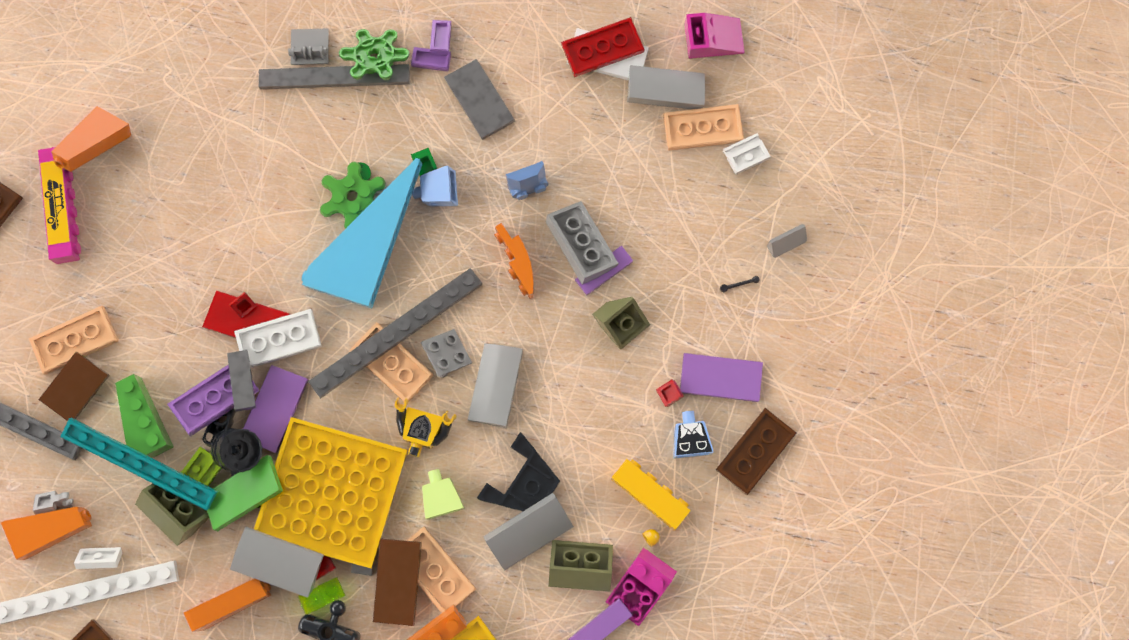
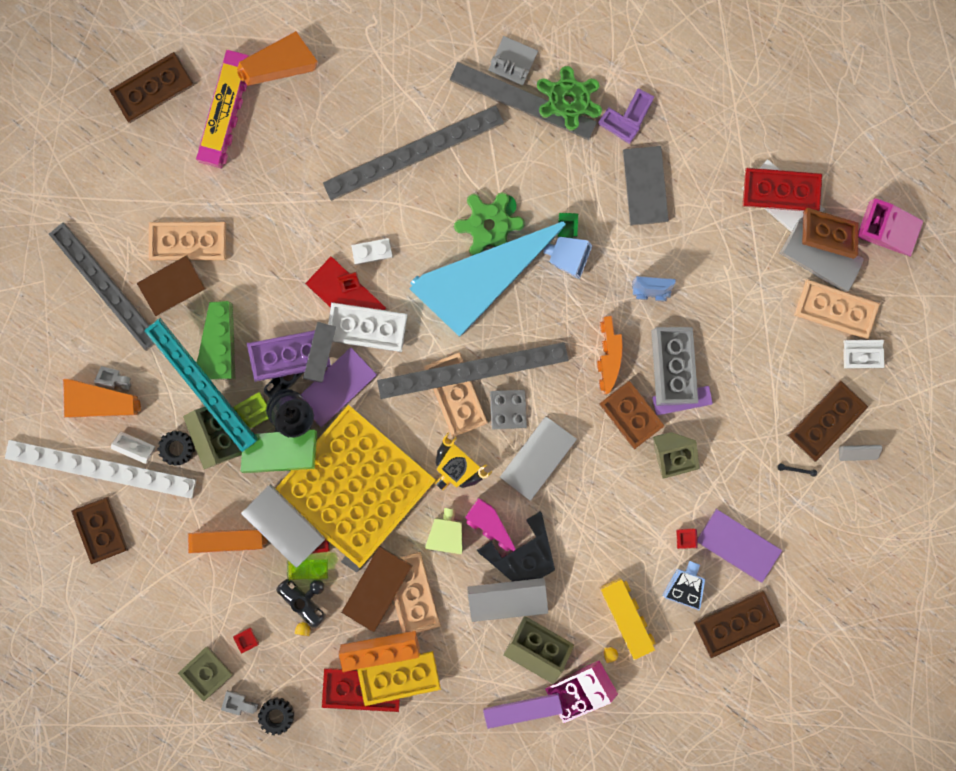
camera: 30 degrees right, 10 degrees up
(150, 547) = (165, 453): none -> black tyre
(253, 166) = (413, 153): none -> flat silver plate
(253, 269) = (371, 251): none -> white plate
(469, 461) = (487, 519): none -> dark pink slope
(563, 304) = (631, 415): none -> dark orange plate
(663, 63) = (830, 233): none -> dark orange plate
(744, 227) = (827, 421): none -> reddish brown tile

